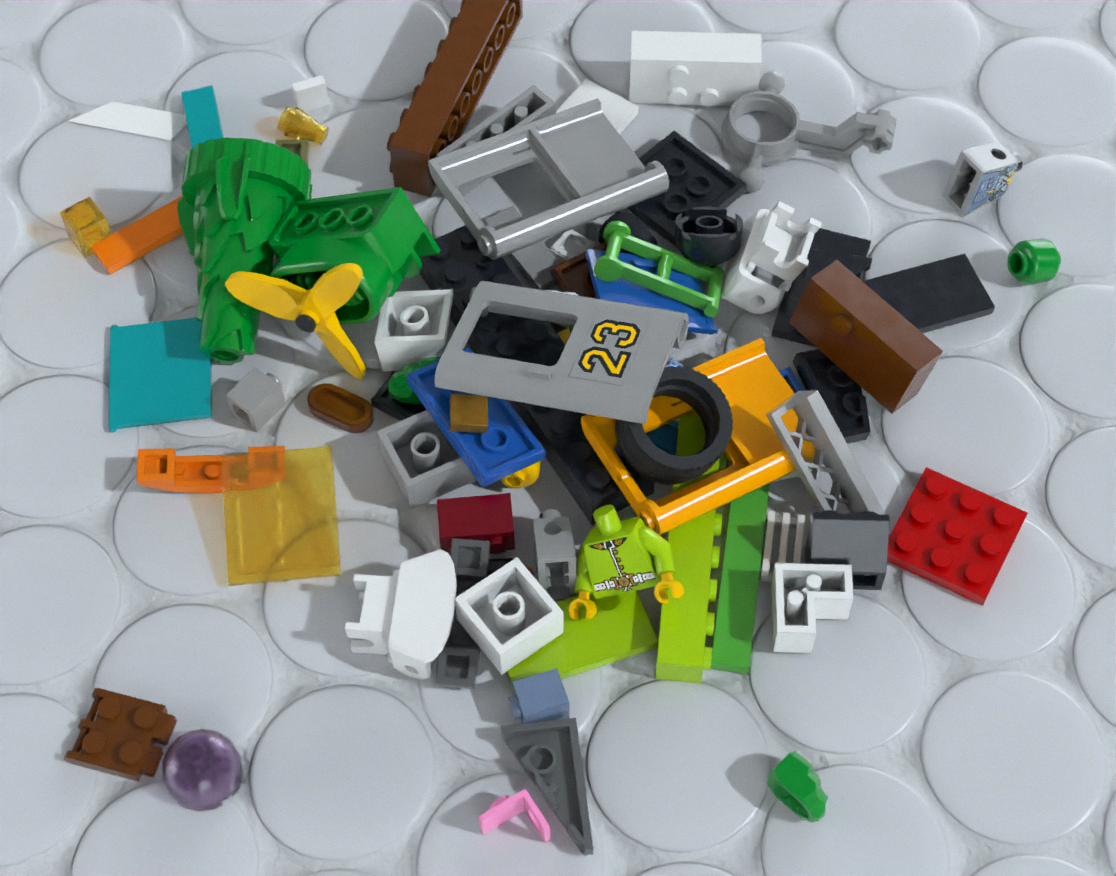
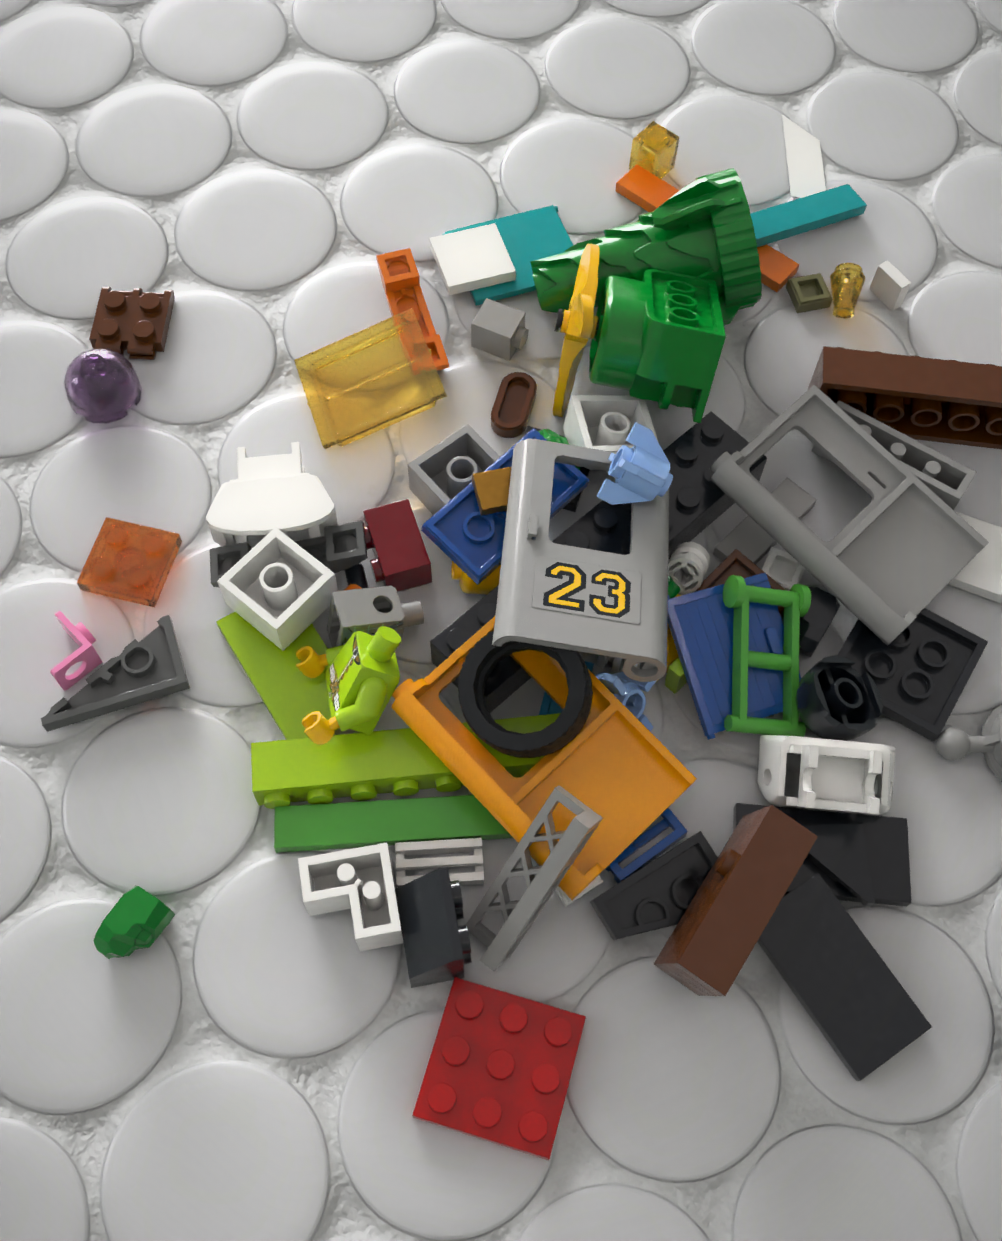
camera: 75 degrees right, 5 degrees up
(160, 405) = (472, 259): none -> white tile
(423, 764) = (129, 562): none -> clear orange plate
(502, 289) = (638, 471): none -> light blue brick
(539, 698) = (204, 645): sand blue brick -> none
(1034, 261) = (953, 1126): green head -> none

